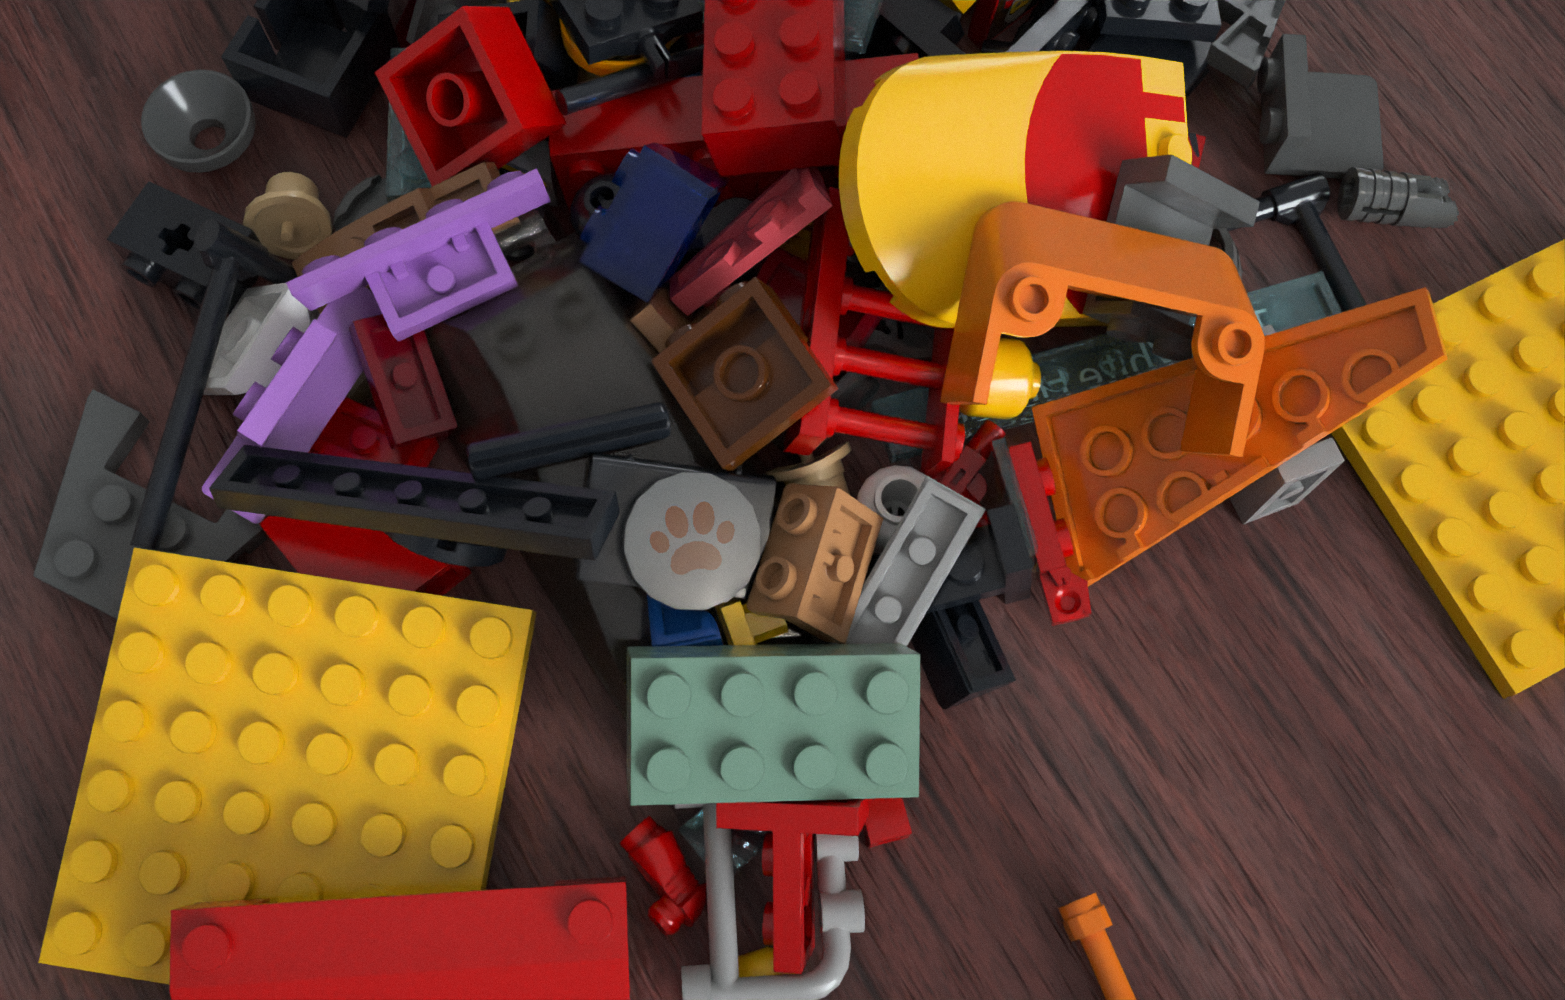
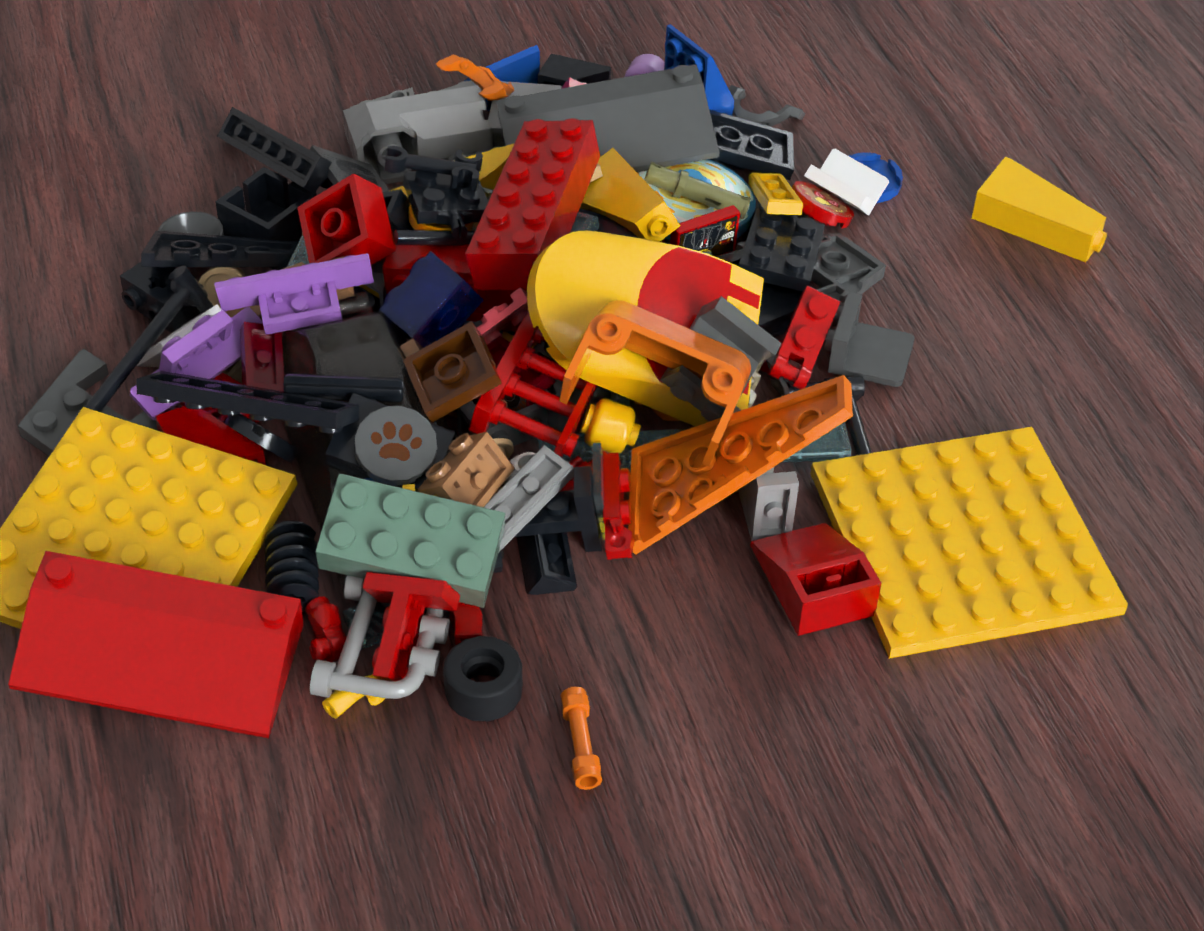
camera: 15 degrees right, 25 degrees down
(233, 163) = (205, 250): none -> black wing
(573, 774) = (292, 561): none -> black piece
(980, 906) = (483, 699): none -> black tyre
(1239, 118) = (804, 337): none -> red plate
(1374, 582) = (818, 577): none -> red slope
(1395, 199) = (905, 395): dark grey hinge -> none

